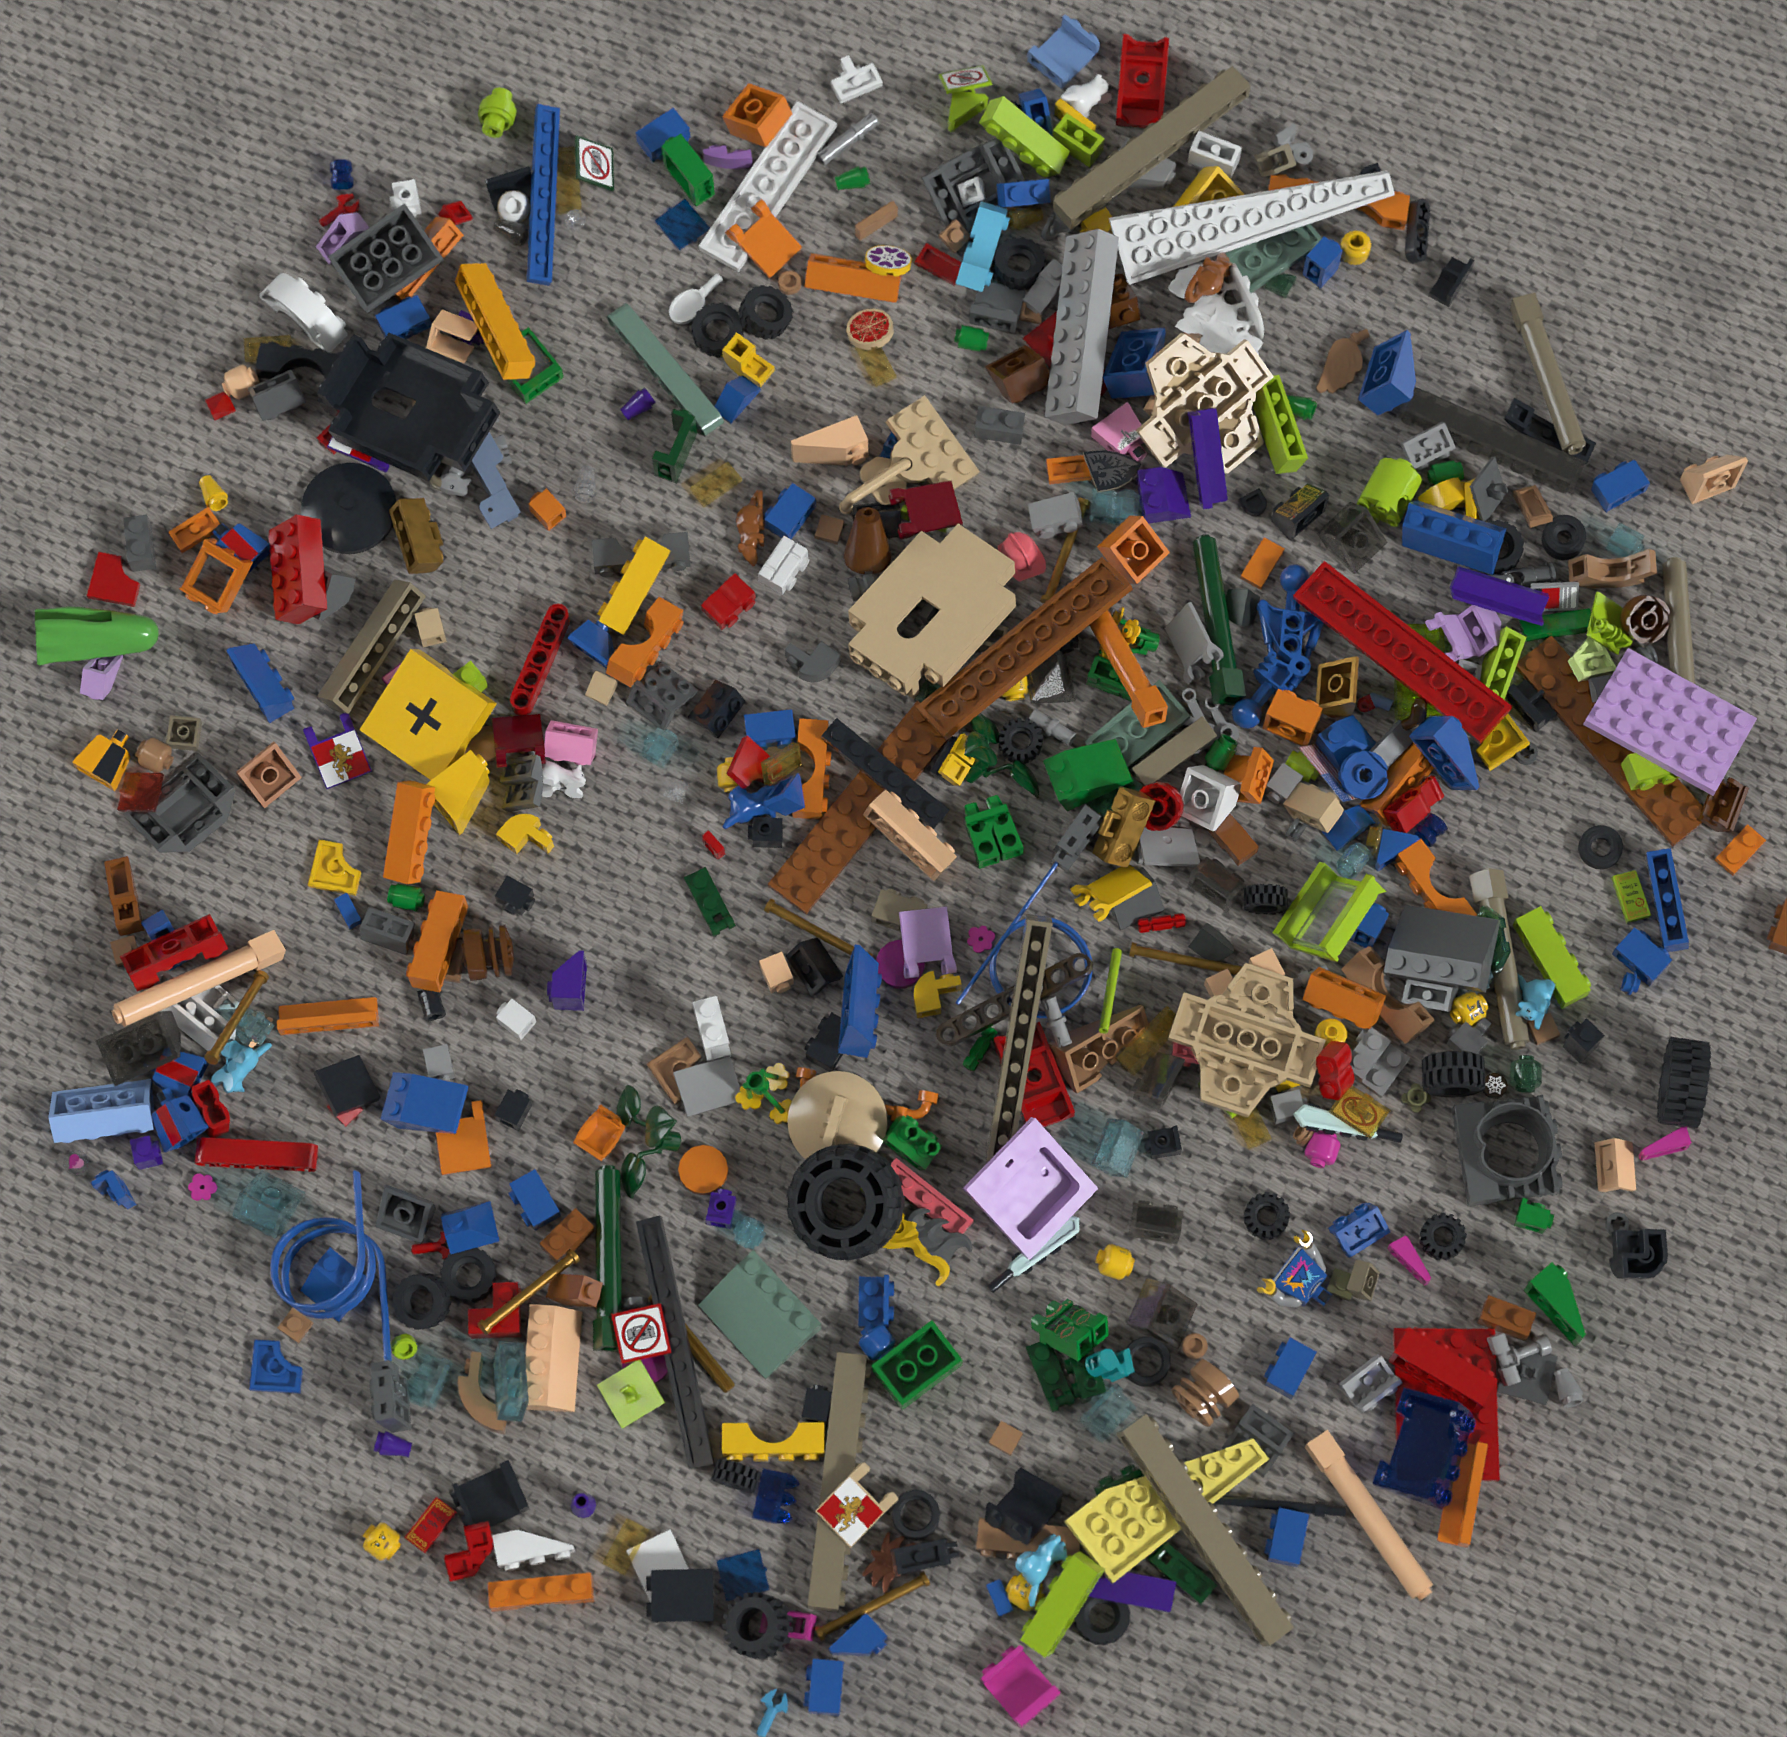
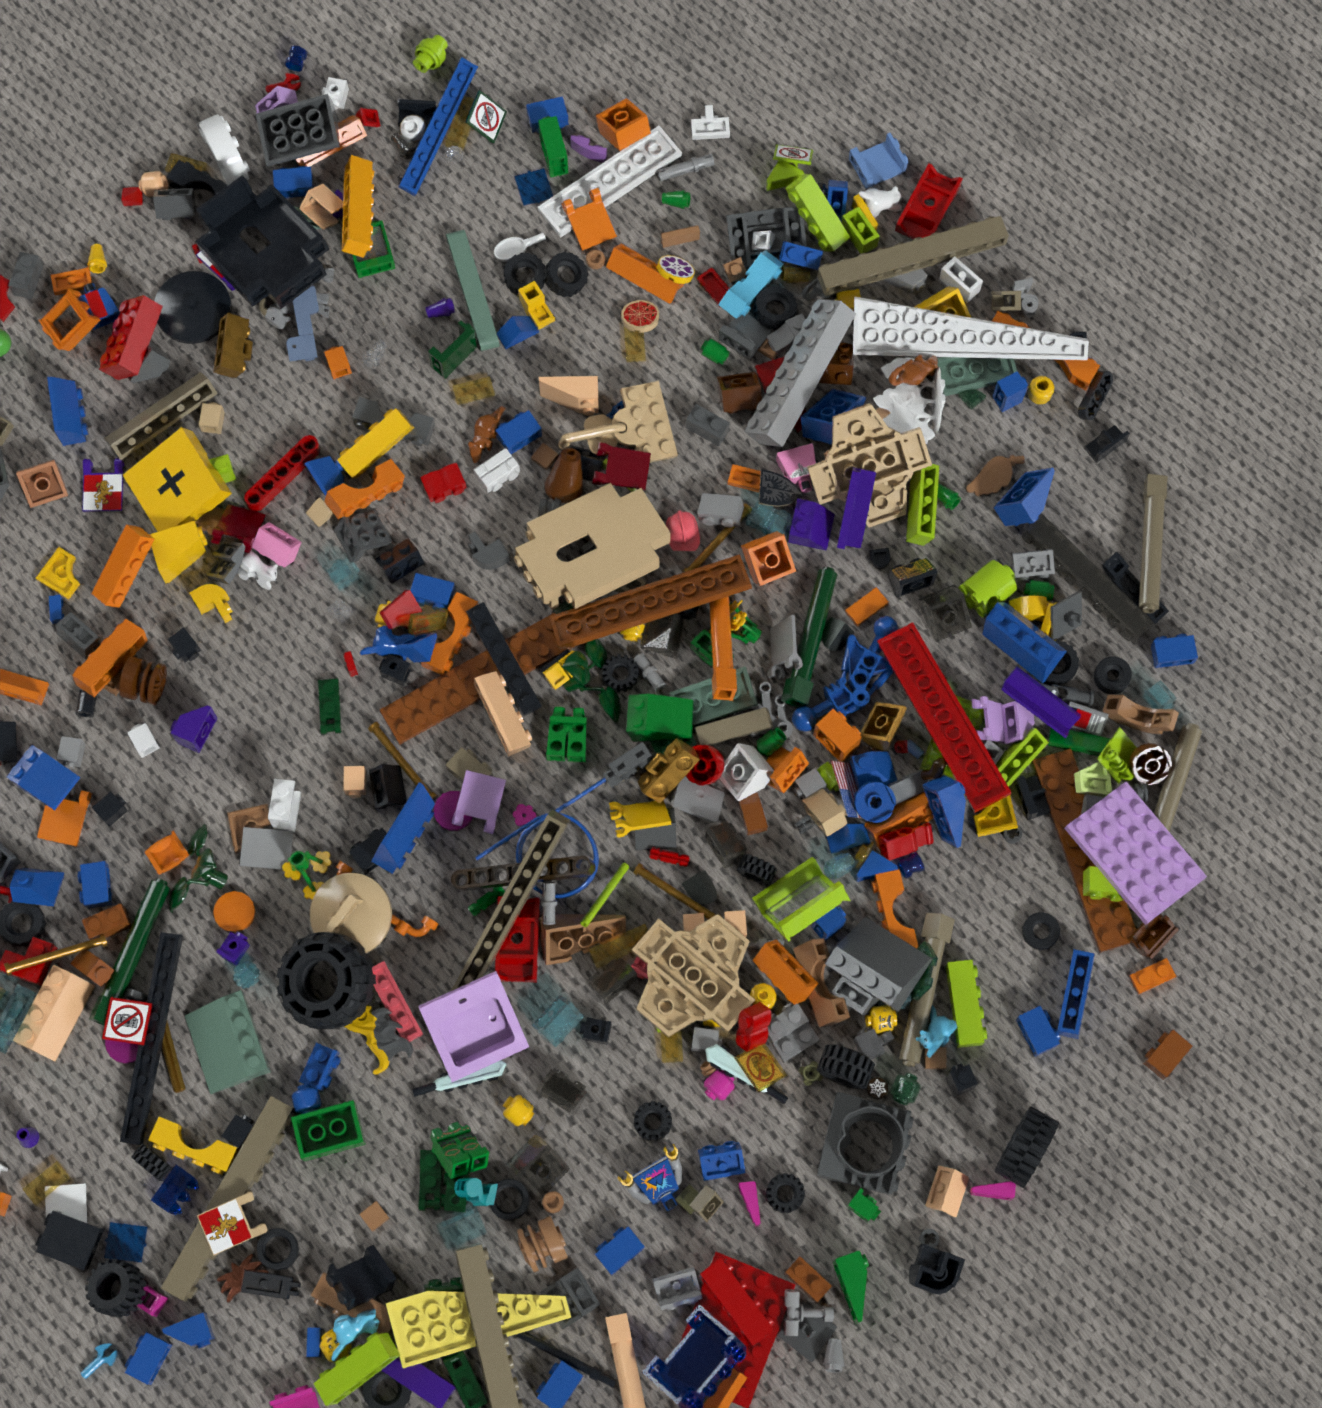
camera: 20 degrees right, 0 degrees up
(406, 897) = (103, 615): green brick -> none
(631, 1393) = (102, 1064): lime piece -> none
(872, 1606) = (210, 1308): pearl gold bar -> none
(912, 1142) = (400, 954): green brick -> none
(928, 991) = (464, 839): yellow brick -> none
(1533, 506) = (1097, 641): medium nougat tile -> none
(1630, 983) = (1020, 1049): blue plate -> none
(1631, 896) = (1049, 979): lime tile -> none
(1712, 477) = (1250, 672): light nougat slope -> none

